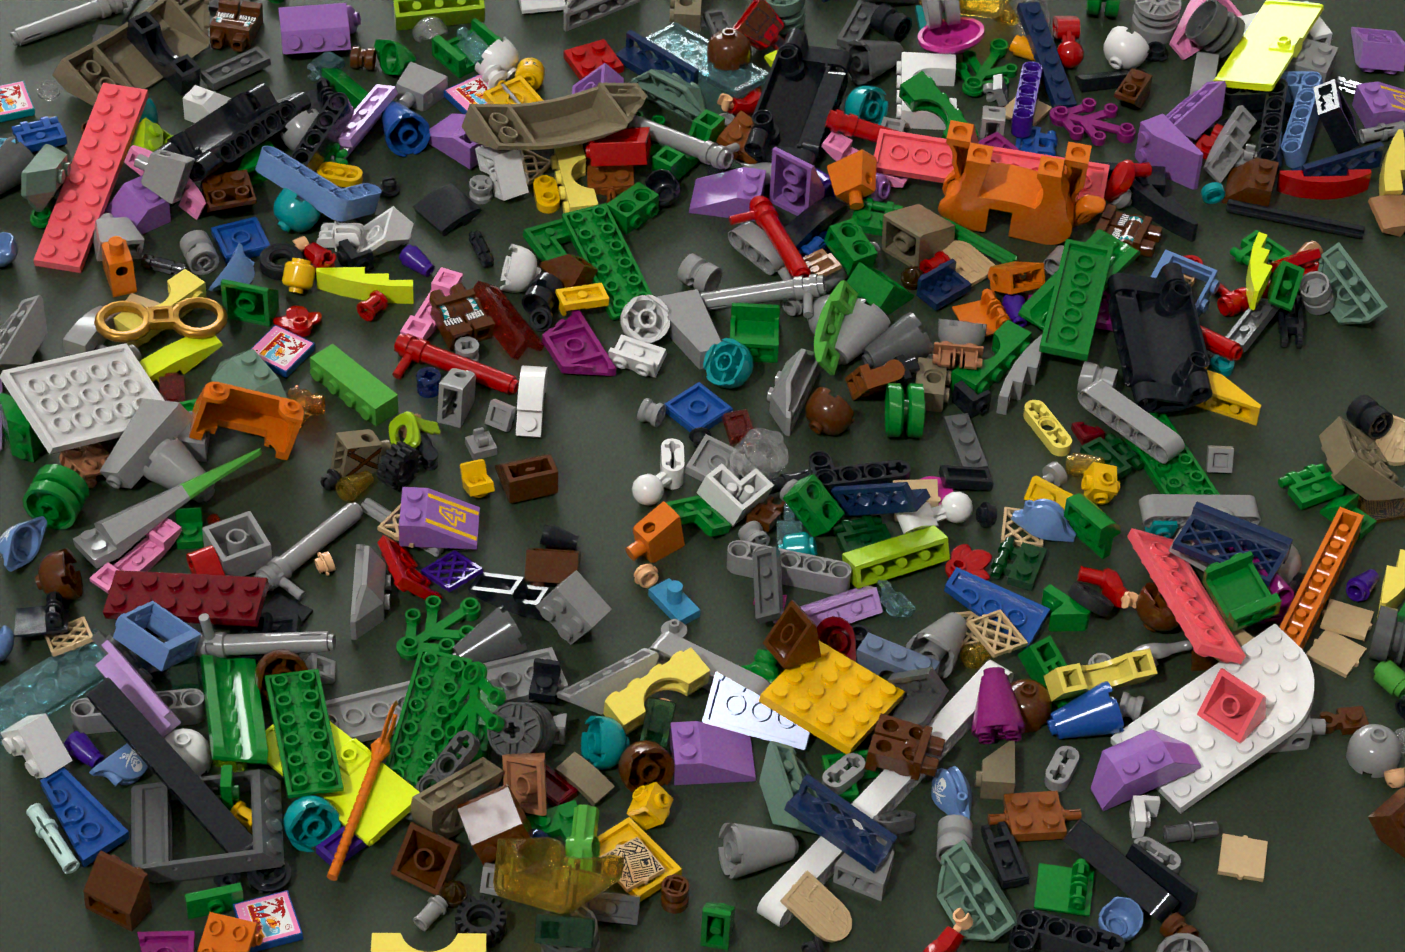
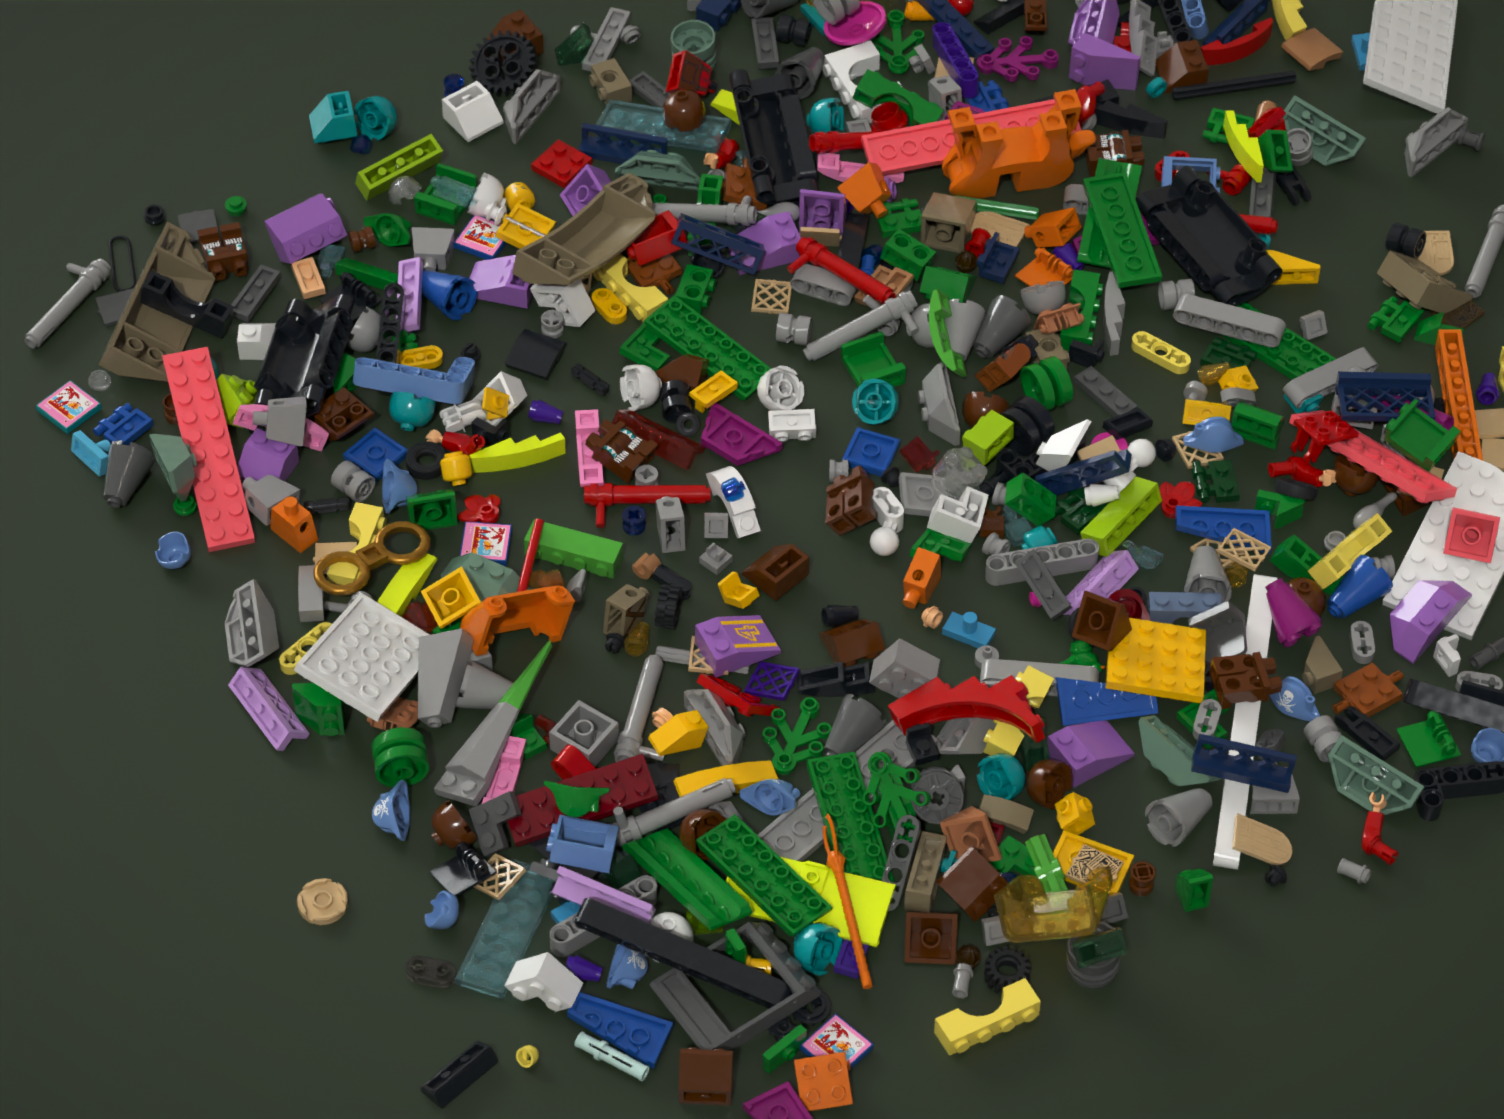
camera: 25 degrees left, 5 degrees up
(92, 583) = (489, 819): none -> dark grey plate
(172, 592) = (576, 800): none -> green hat
(196, 373) = (451, 597): none -> yellow slope
(291, 385) = (530, 555): none -> red piece
(292, 73) = (308, 278): none -> light nougat plate
(326, 580) = (679, 733): none -> yellow slope
(334, 419) = (578, 585): none -> light grey slope
(350, 640) = (741, 775): none -> yellow slope
(366, 230) = (495, 404): none -> yellow bracket
(372, 305) = (537, 471): red bush -> none
(372, 669) = (771, 796): none -> medium blue hat
(413, 425) = (658, 565): lime piece -> none
(527, 384) = (732, 489): none -> clear blue piece
(613, 655) = (970, 699): none -> red arch
(636, 441) = (849, 501): none -> reddish brown hips
(679, 165) = (721, 236): none -> dark blue fence
(690, 325) = (821, 380): light grey slope -> none
(713, 231) = (773, 284): none -> tan window
(783, 203) = (826, 236): none -> tan piece
(808, 432) = (989, 436): none -> lime slope
(856, 437) = (1031, 425): none -> black wheel
(873, 466) = (1061, 446): none -> white slope
(884, 526) = (1100, 494): none -> white cone
(925, 124) = (888, 117): none -> red piece
(1078, 484) = (1234, 395): none -> light grey beam
(1086, 433) = (1193, 345): dark red tile -> none
(1145, 550) = (1324, 430): none -> red plate

